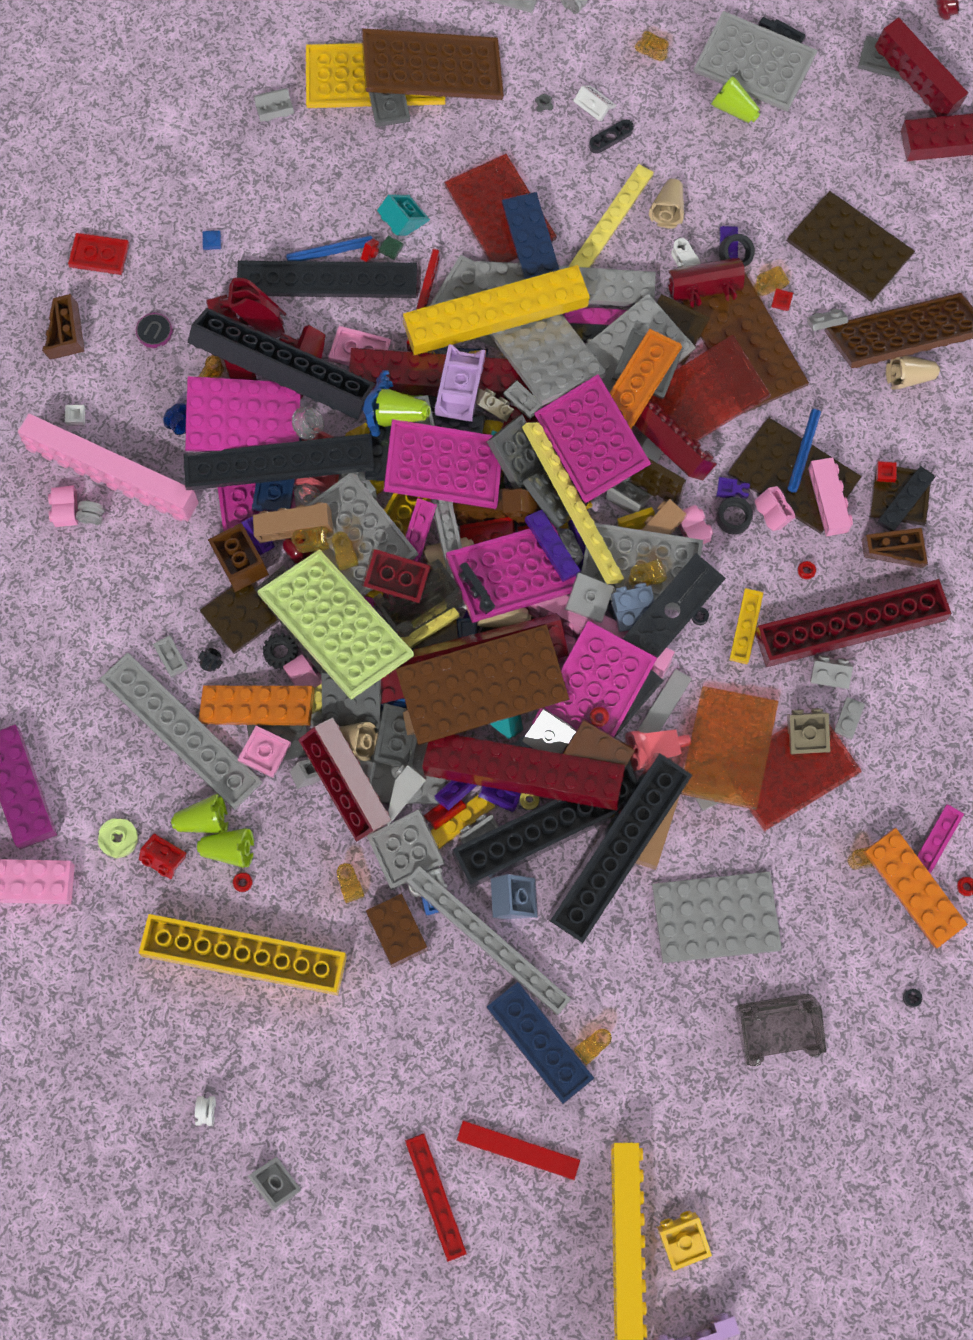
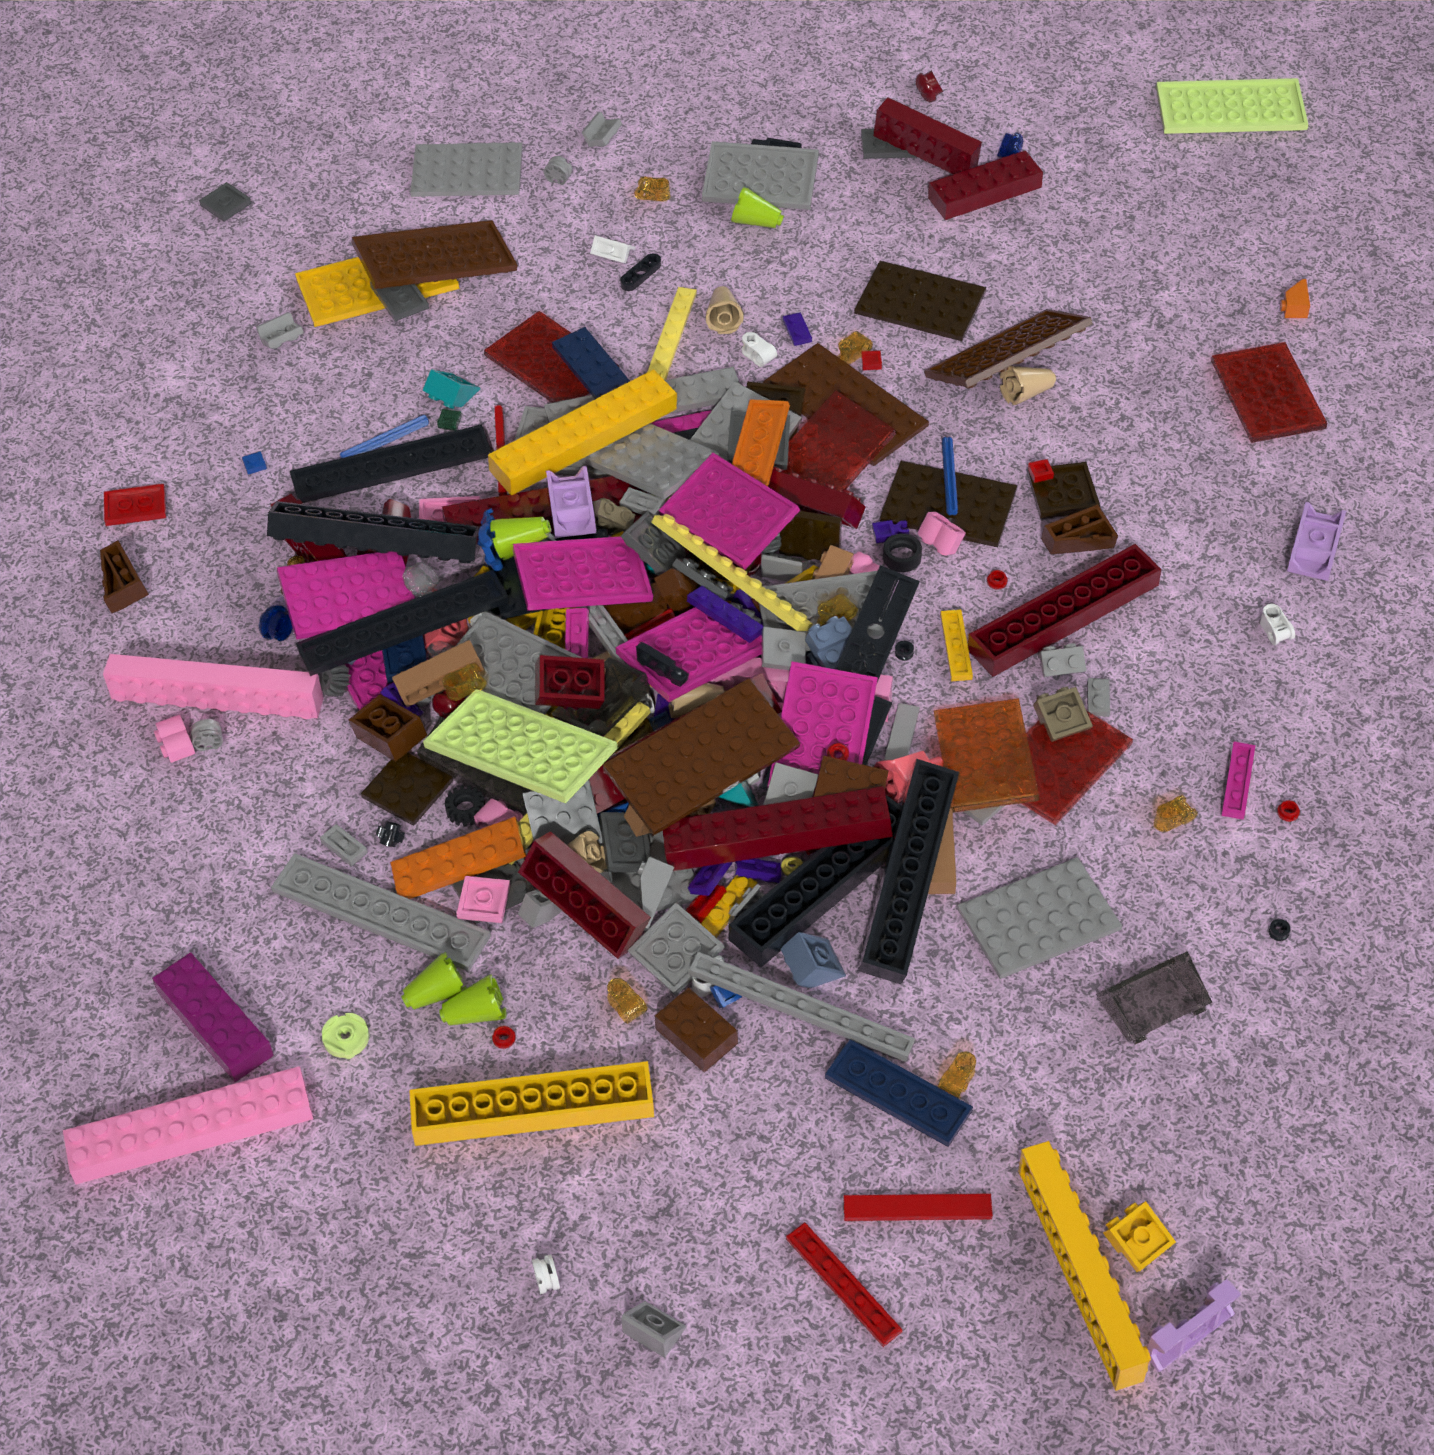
camera: 15 degrees left, 20 degrees down
(75, 415) = (158, 650): white plate -> none
(154, 330) = (219, 557): black tile -> none
(161, 856) = (402, 1039): red bracket -> none
(210, 497) = (335, 681): none -> dark grey gear
(254, 307) = (322, 488): dark red piece -> none
(344, 553) = (504, 679): clear yellow piece -> none
(370, 250) = (428, 425): red plate -> none
(544, 98) = (560, 261): dark grey plate -> none
(707, 279) = (790, 358): dark red piece -> none
(745, 241) = (816, 321): black tyre -> none
(826, 320) = (919, 366): light grey plate -> none
(830, 497) = (993, 506): bright pink brick -> none
(906, 499) = (1071, 488): black plate -> none
(915, 888) = (1236, 824): orange plate -> none

